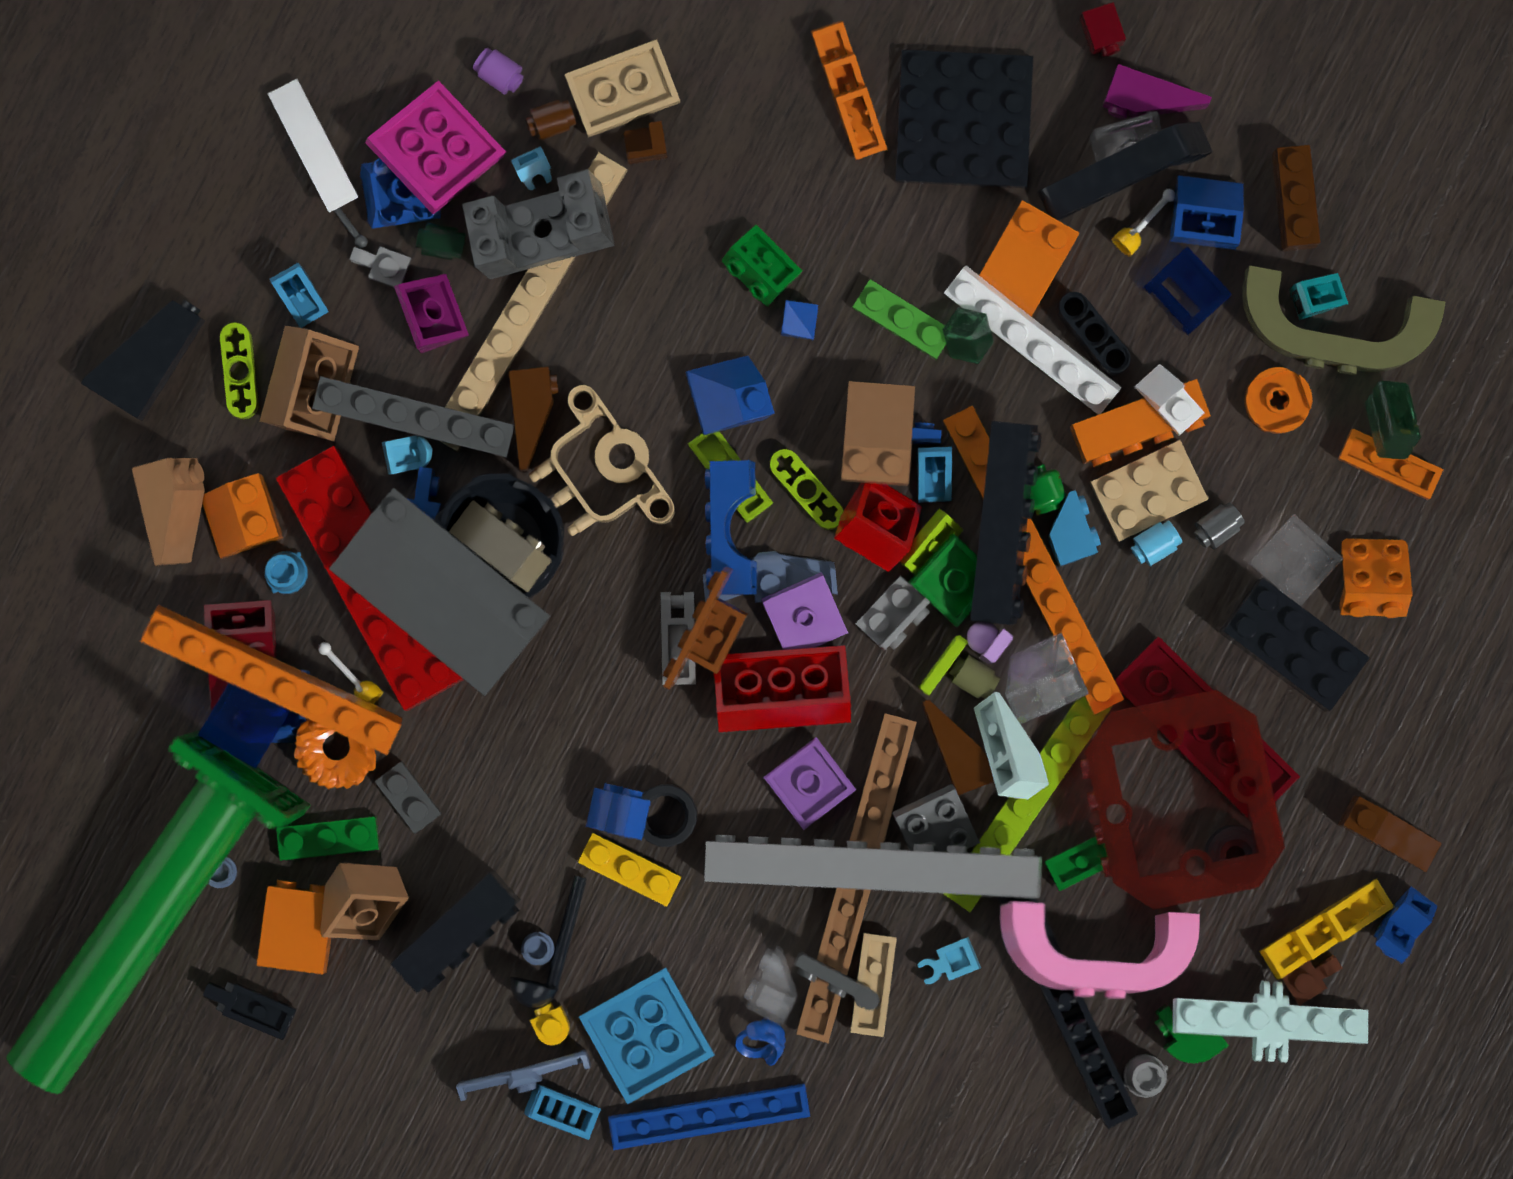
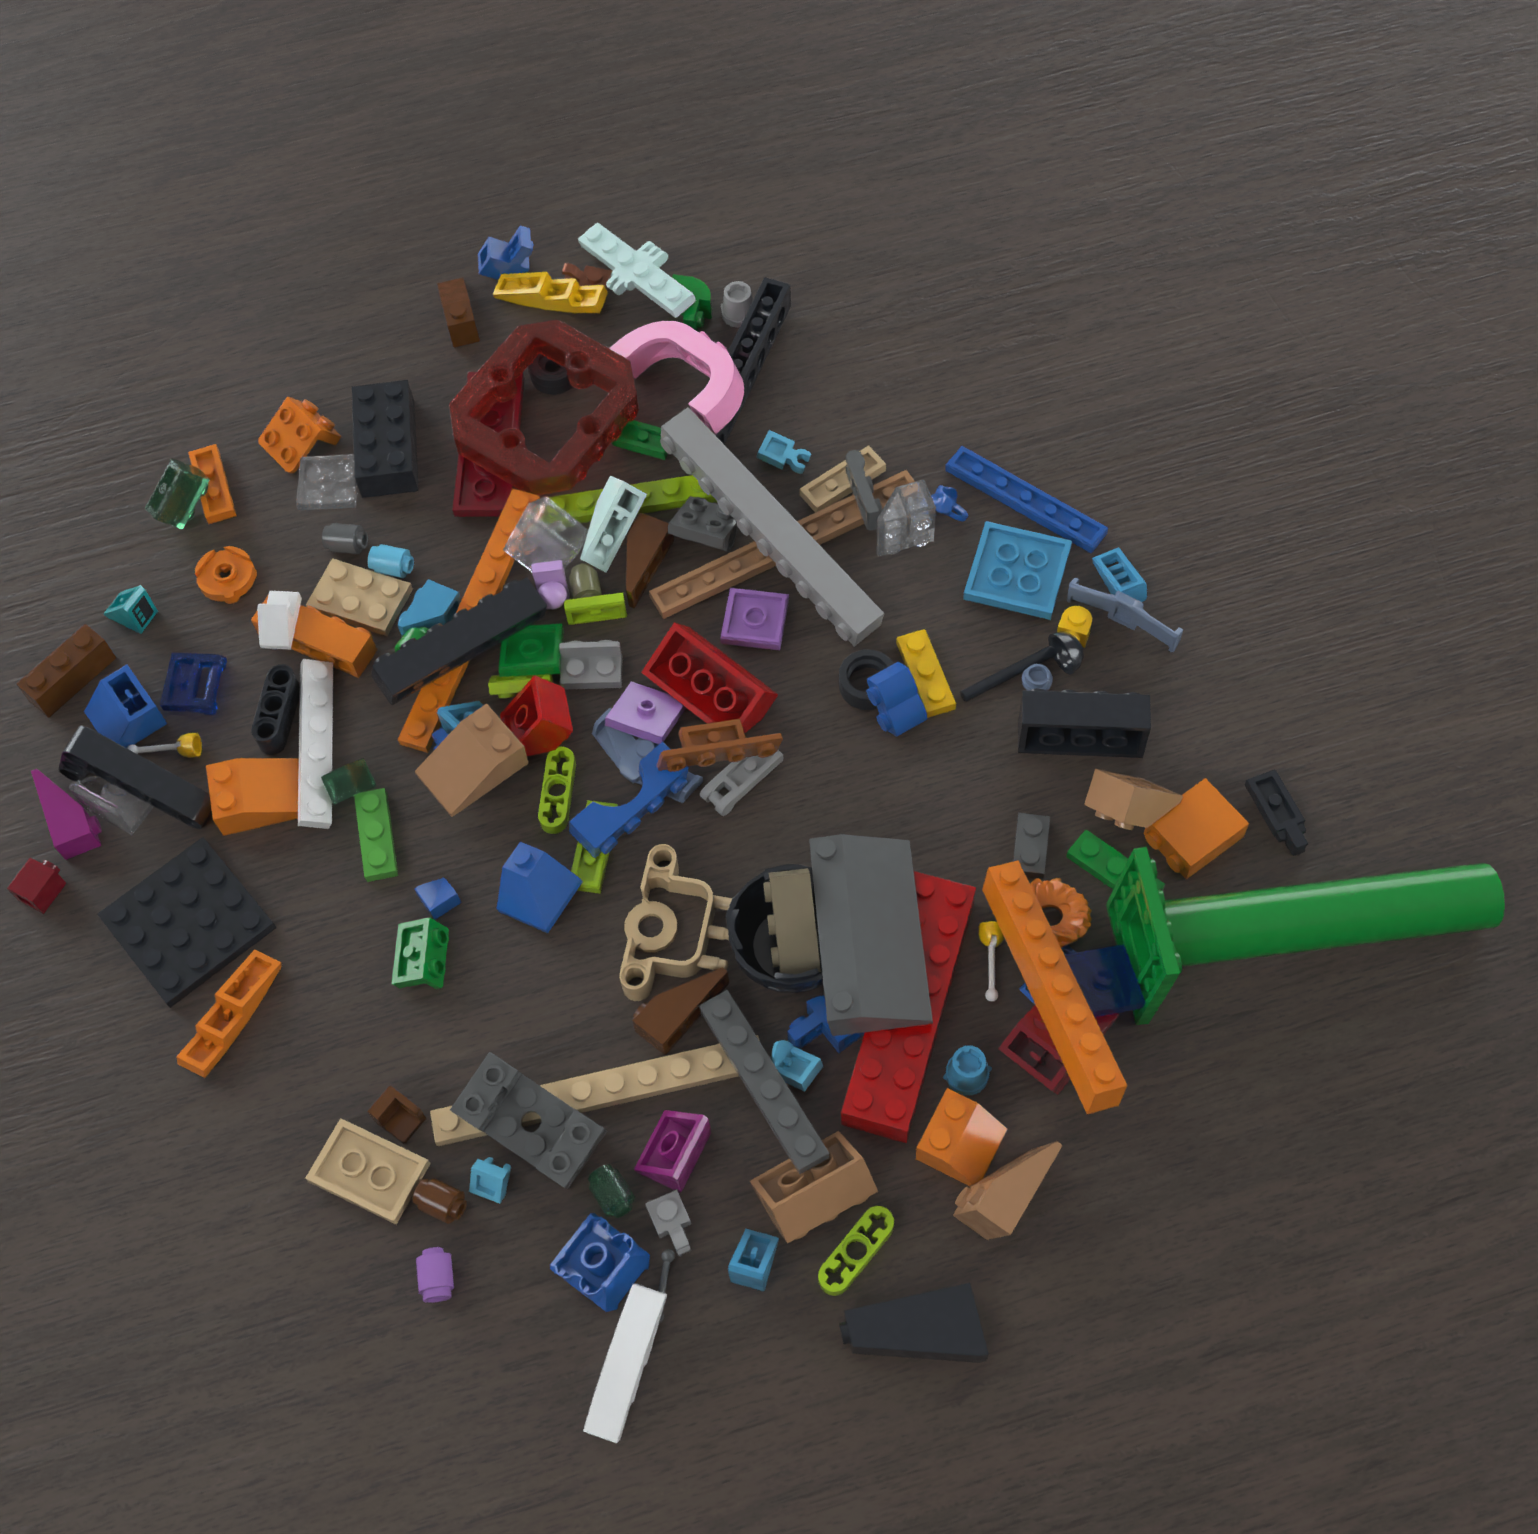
camera: 130 degrees left, 25 degrees down
(435, 147) = (539, 1261): dark pink plate -> none
(1268, 322) = (173, 619): olive arch -> none

